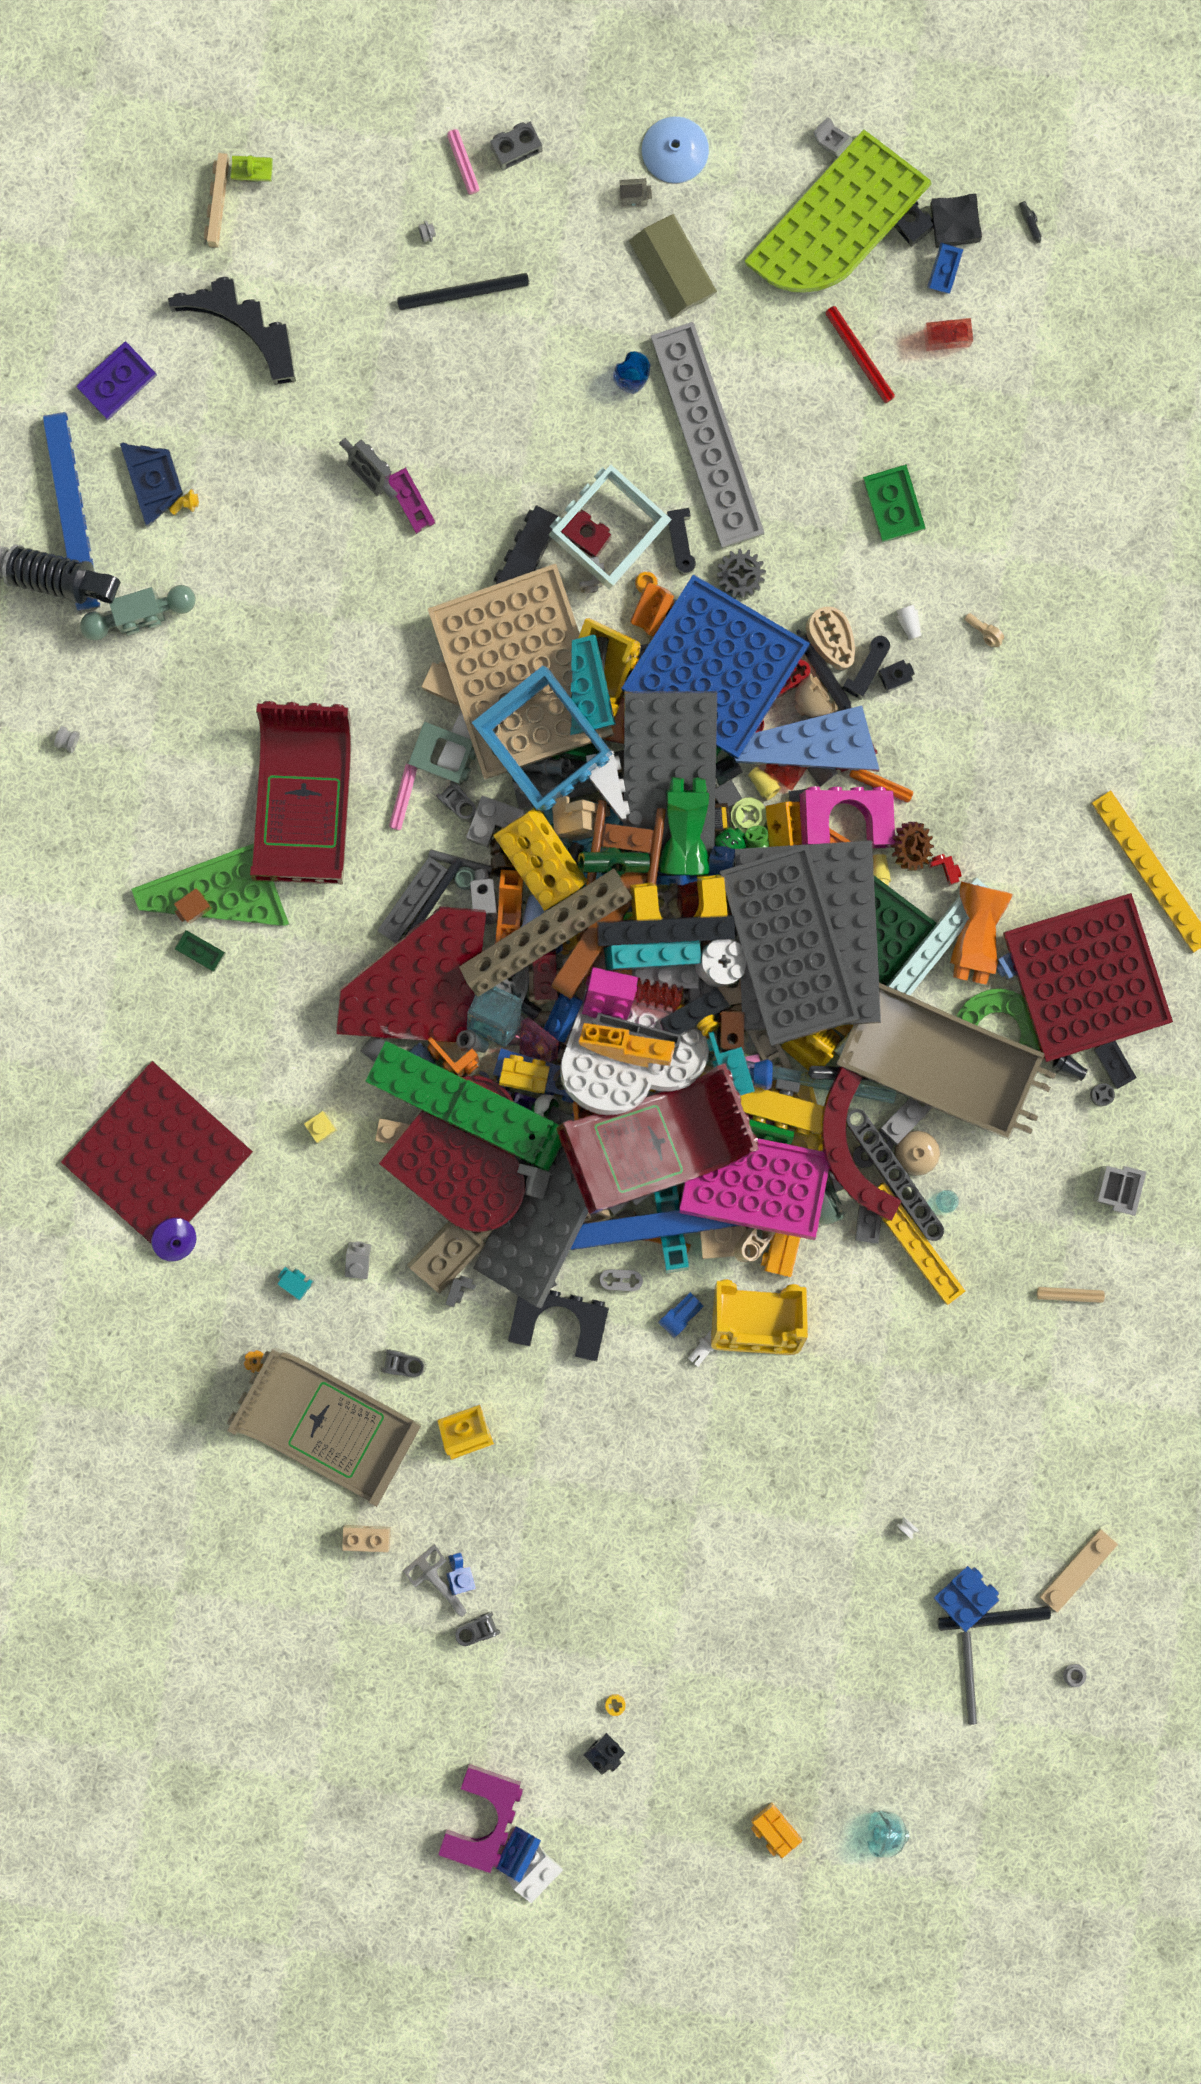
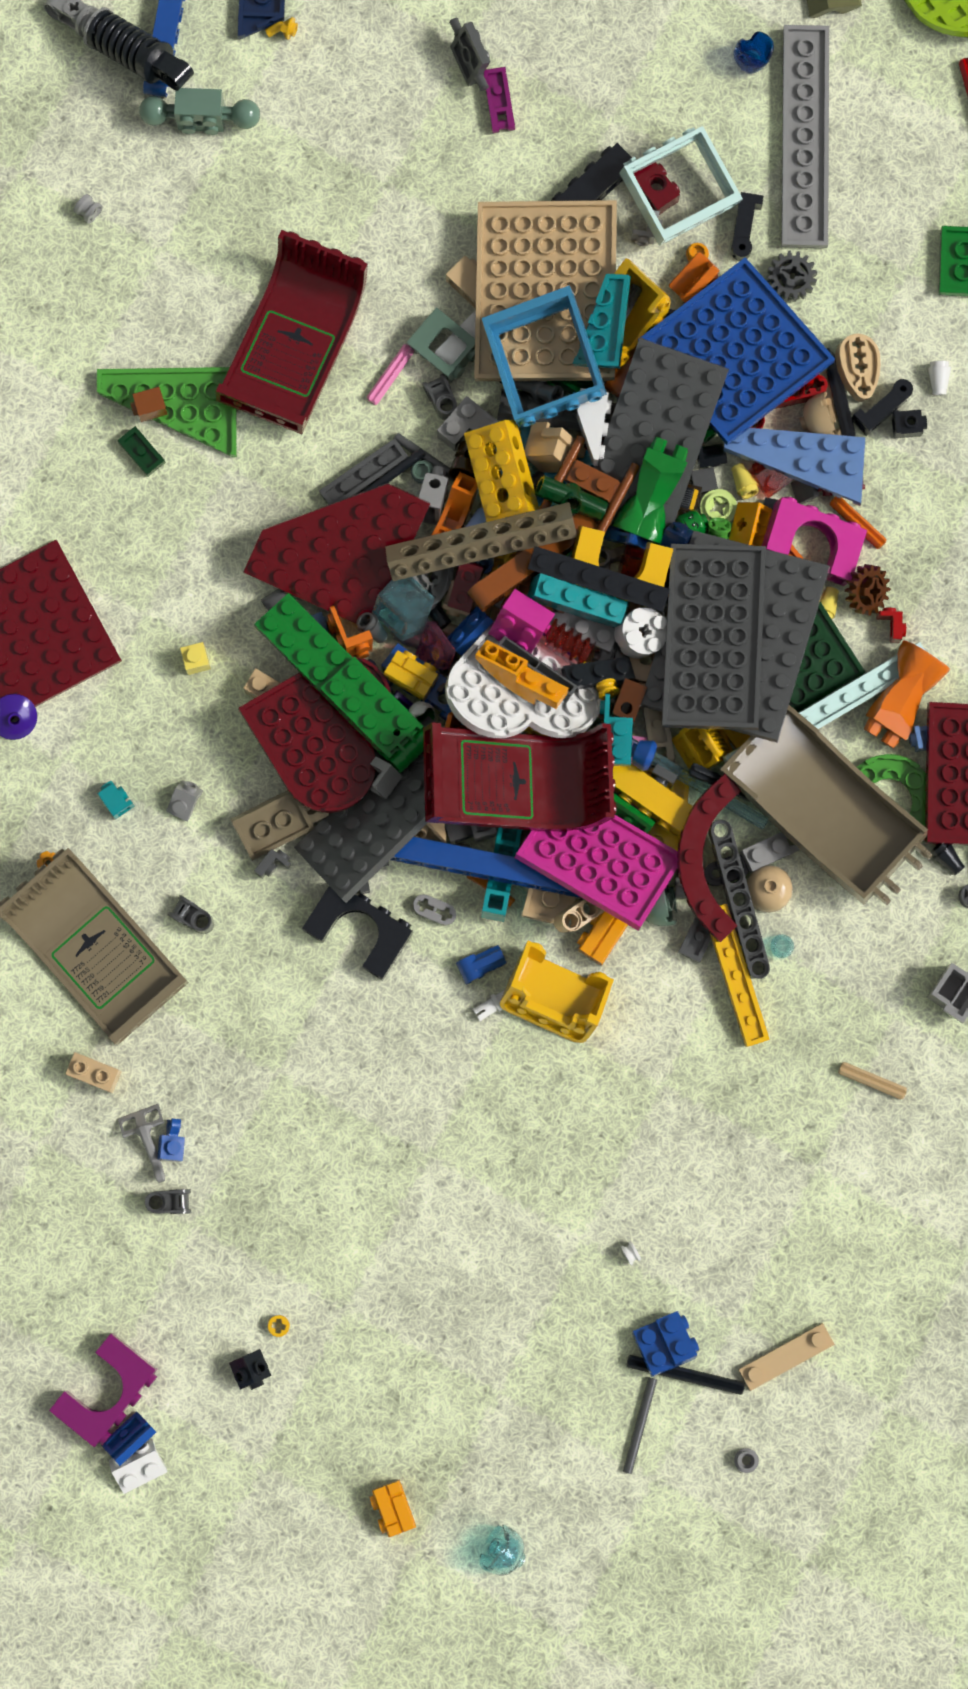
camera: 15 degrees right, 5 degrees down
(465, 1432) = (228, 1004): yellow bracket -> none

